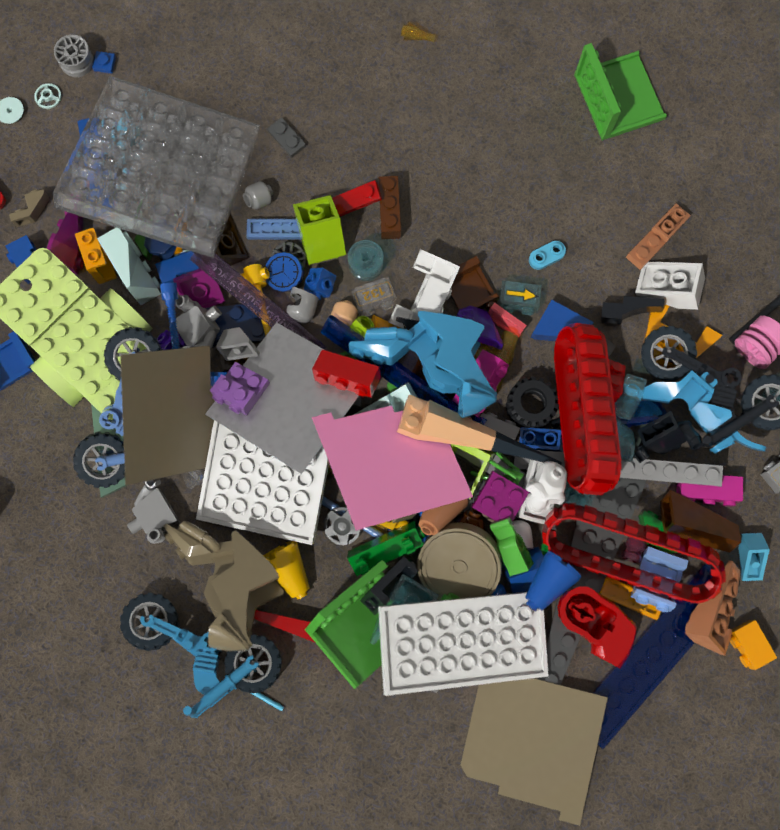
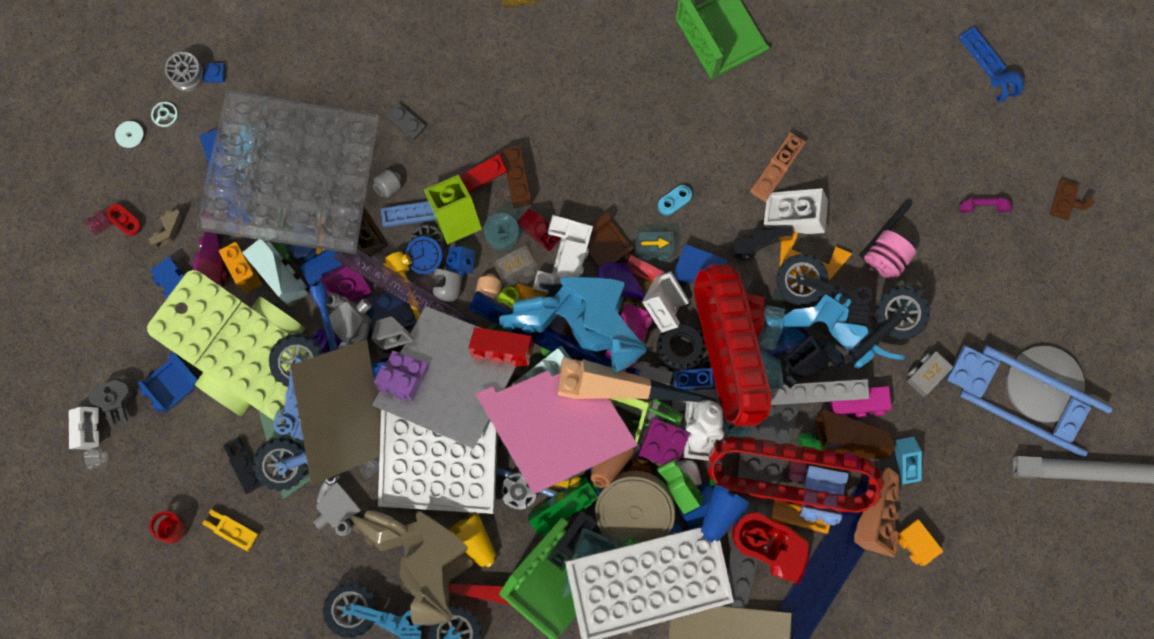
camera: 10 degrees left, 0 degrees up
(44, 521) = (232, 531): none -> yellow hinge
(64, 457) = (243, 467): none -> black hinge
(402, 261) = (537, 228): none -> dark red slope
(522, 352) = (664, 300): none -> white panel

